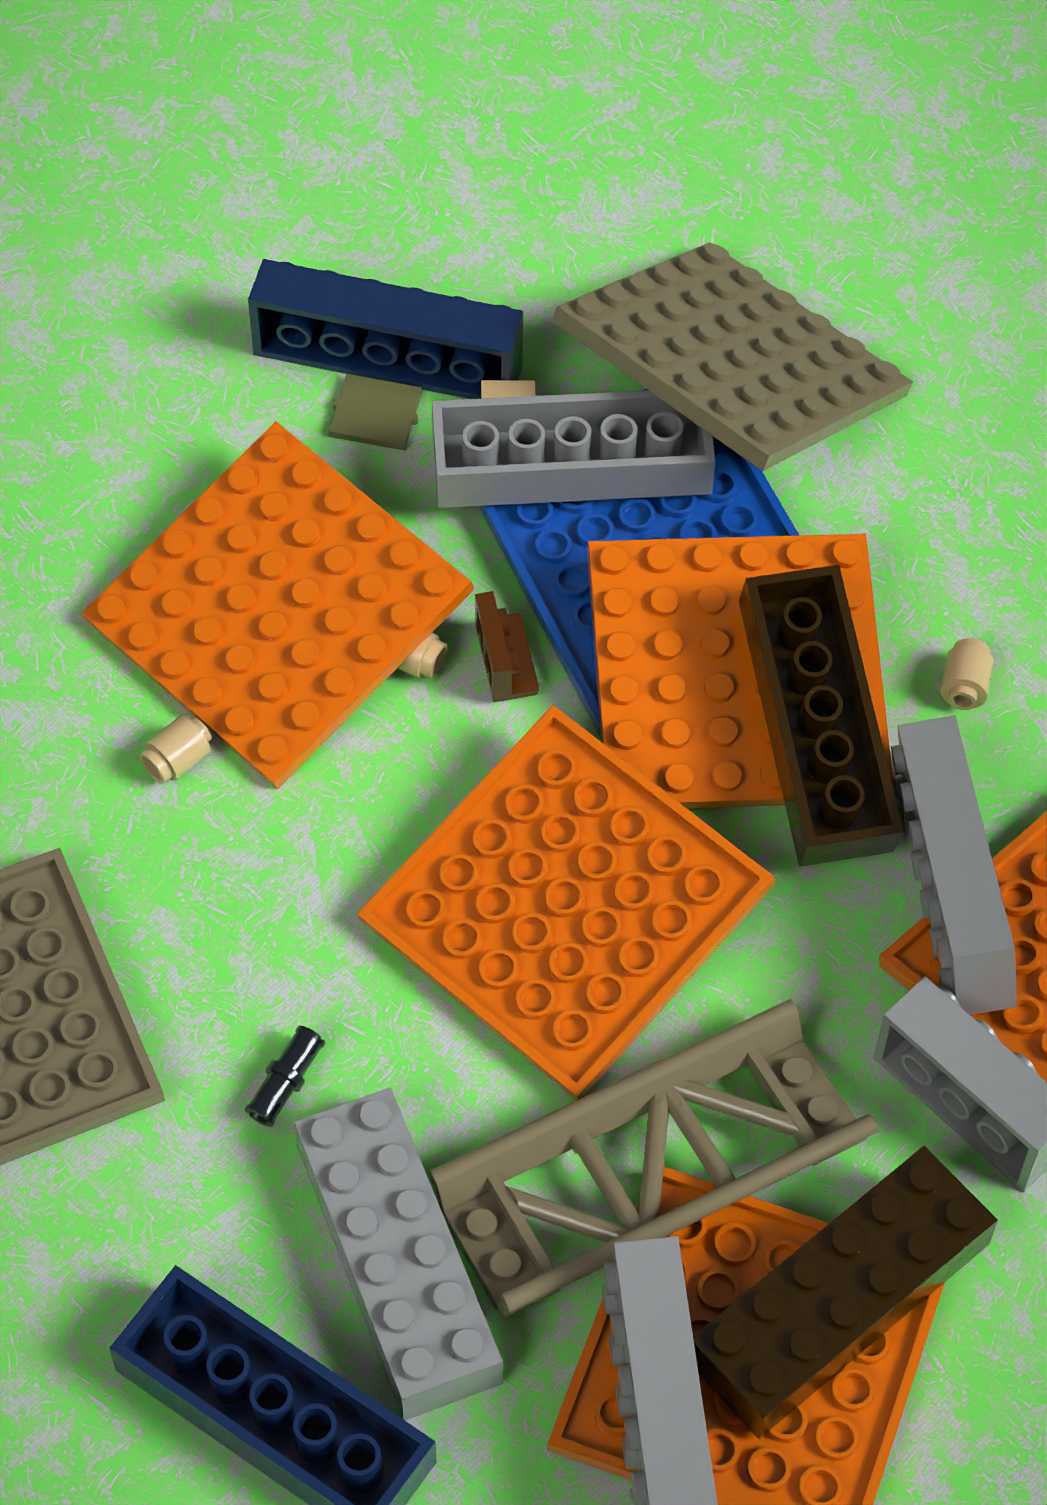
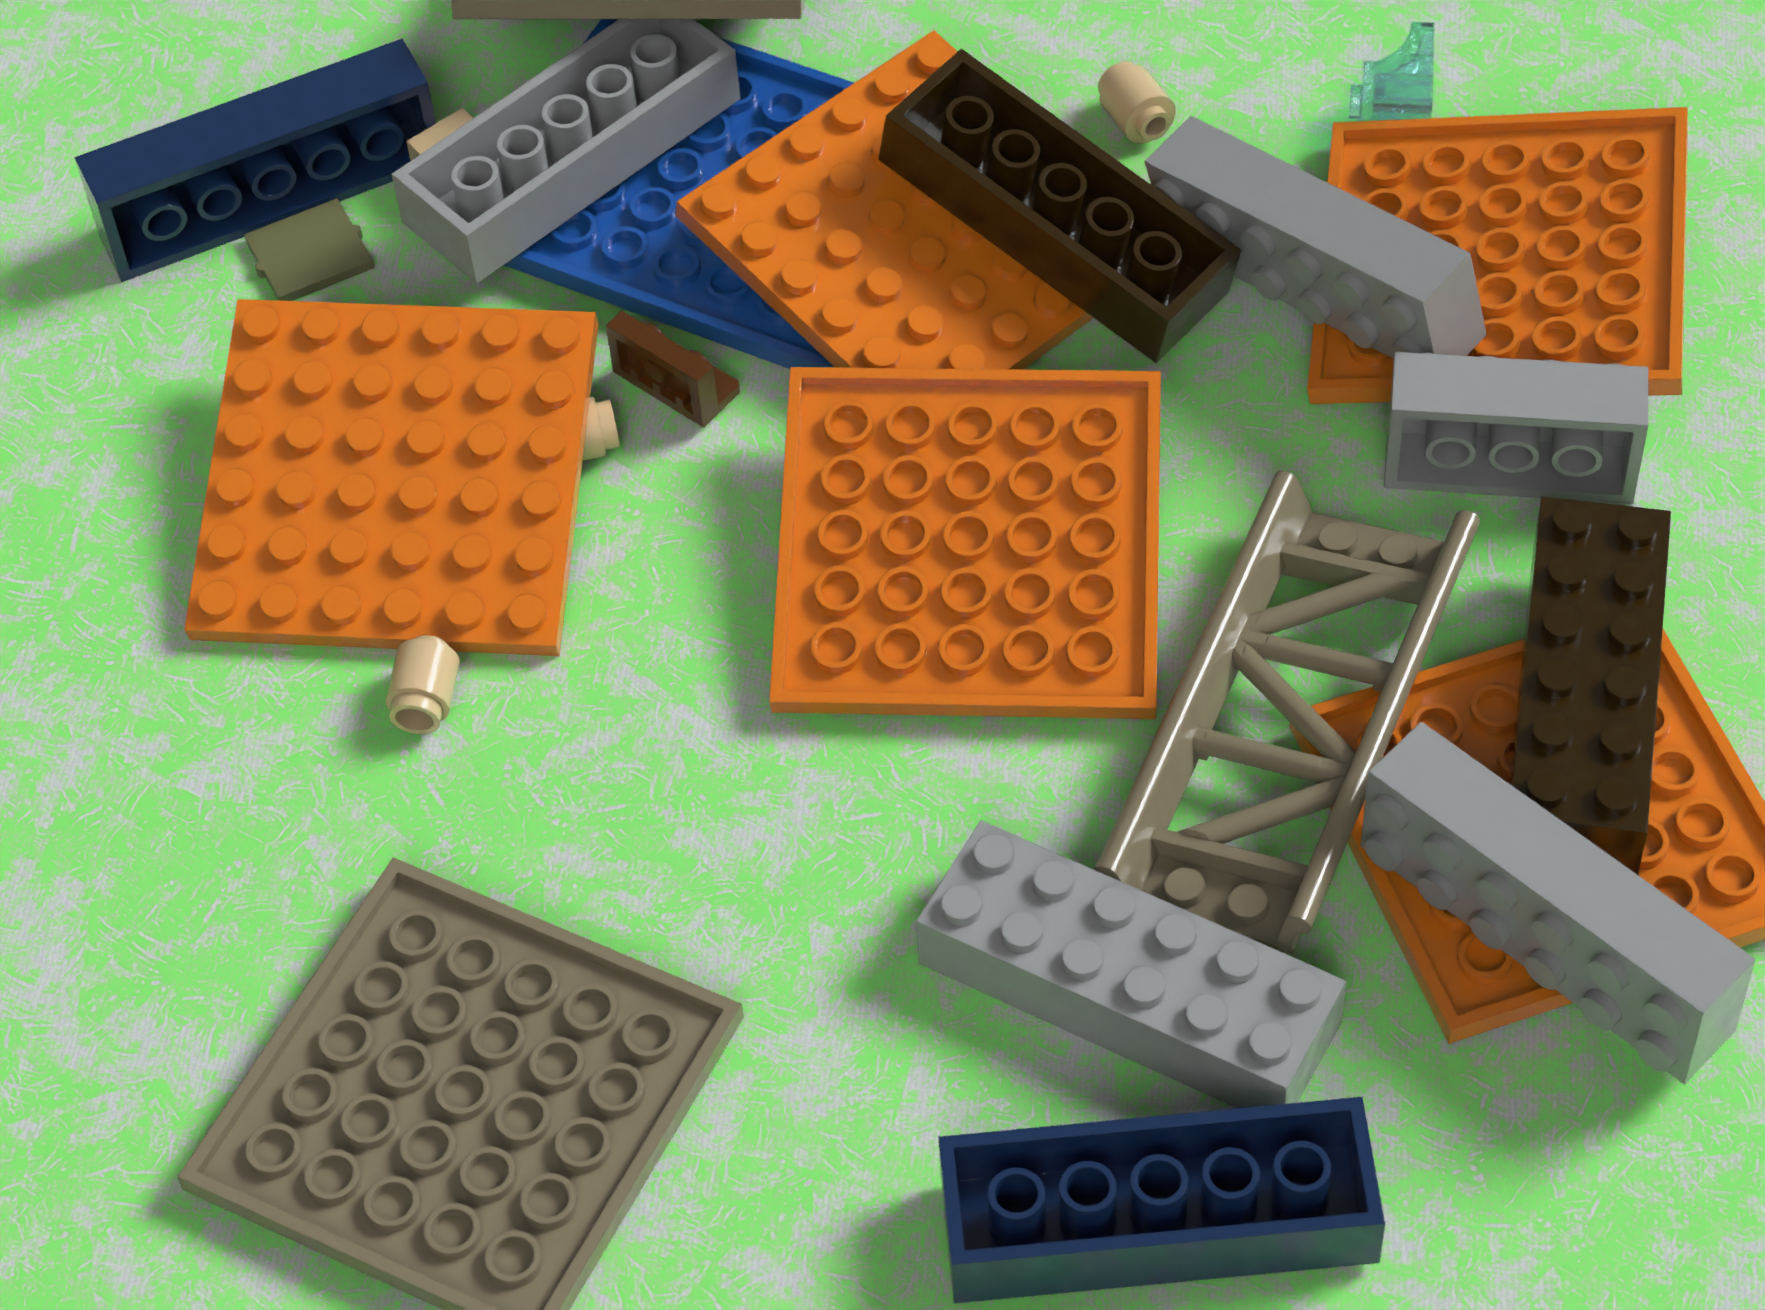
camera: 35 degrees left, 5 degrees down
(285, 1076) = (847, 902): black pin -> none

